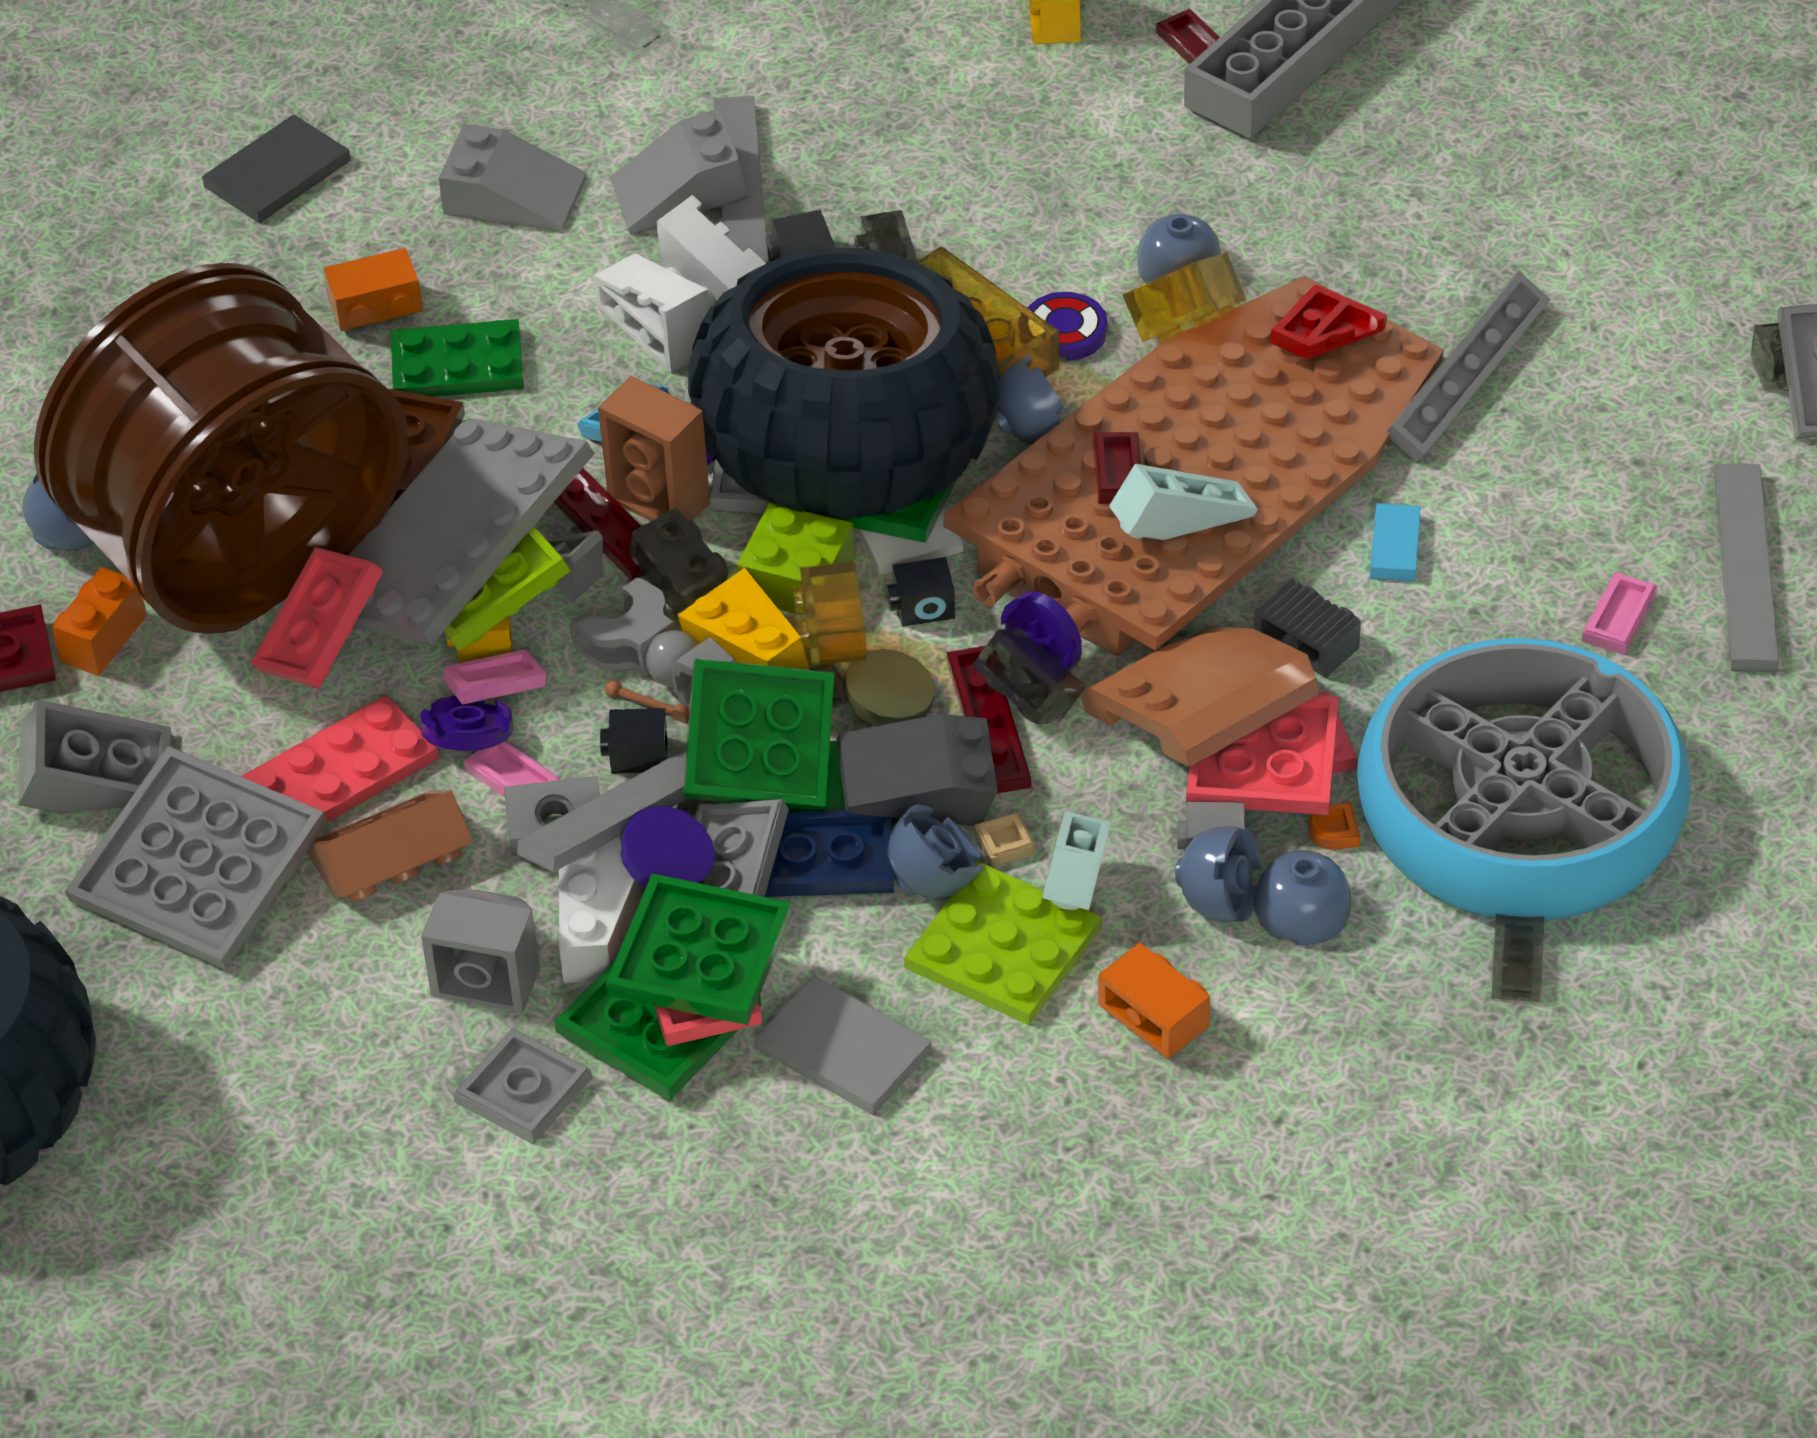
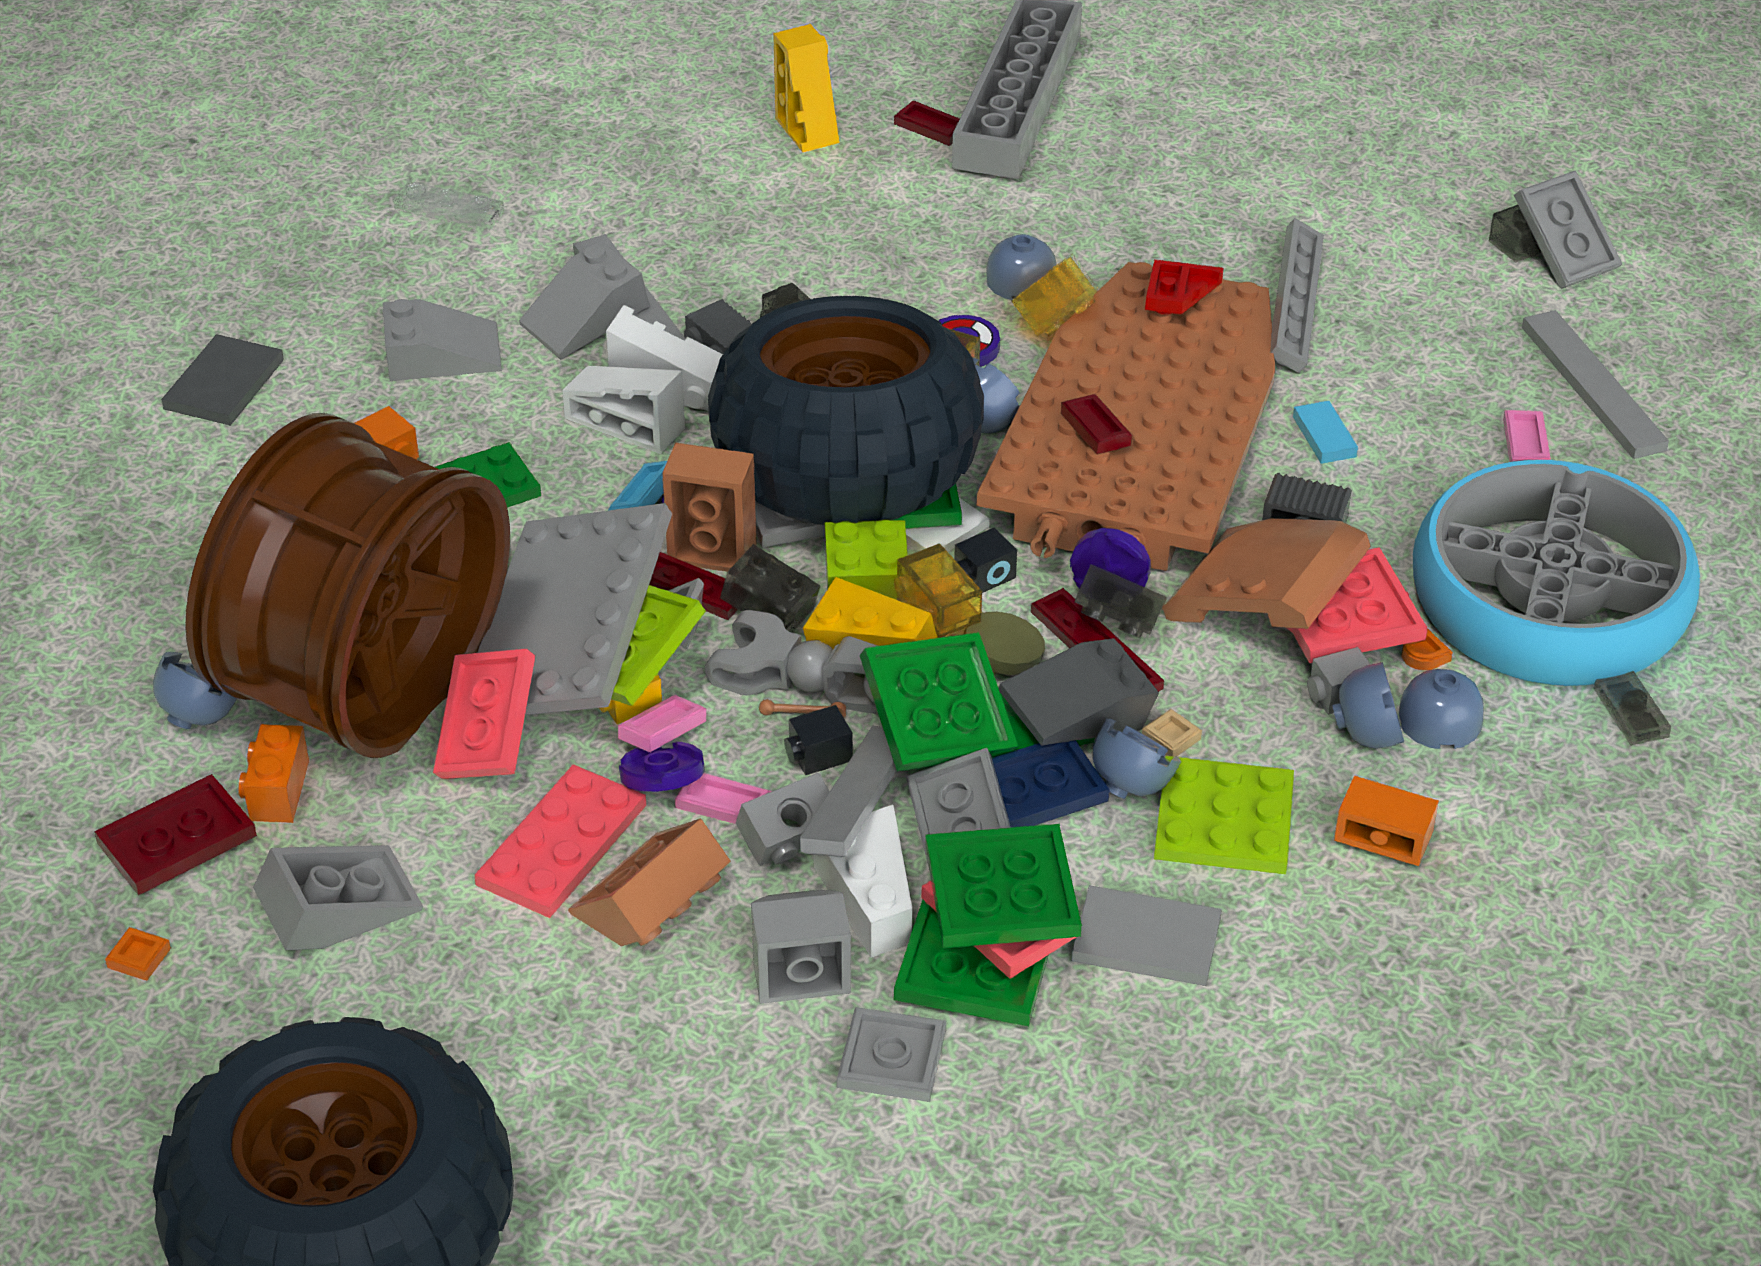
camera: 25 degrees left, 5 degrees down
(196, 857) = (484, 946): light grey plate -> none
(666, 844) = (911, 811): dark purple tile -> none
(1076, 861) = (1257, 728): light aqua brick -> none
(1176, 503) = (1165, 436): light aqua slope -> none

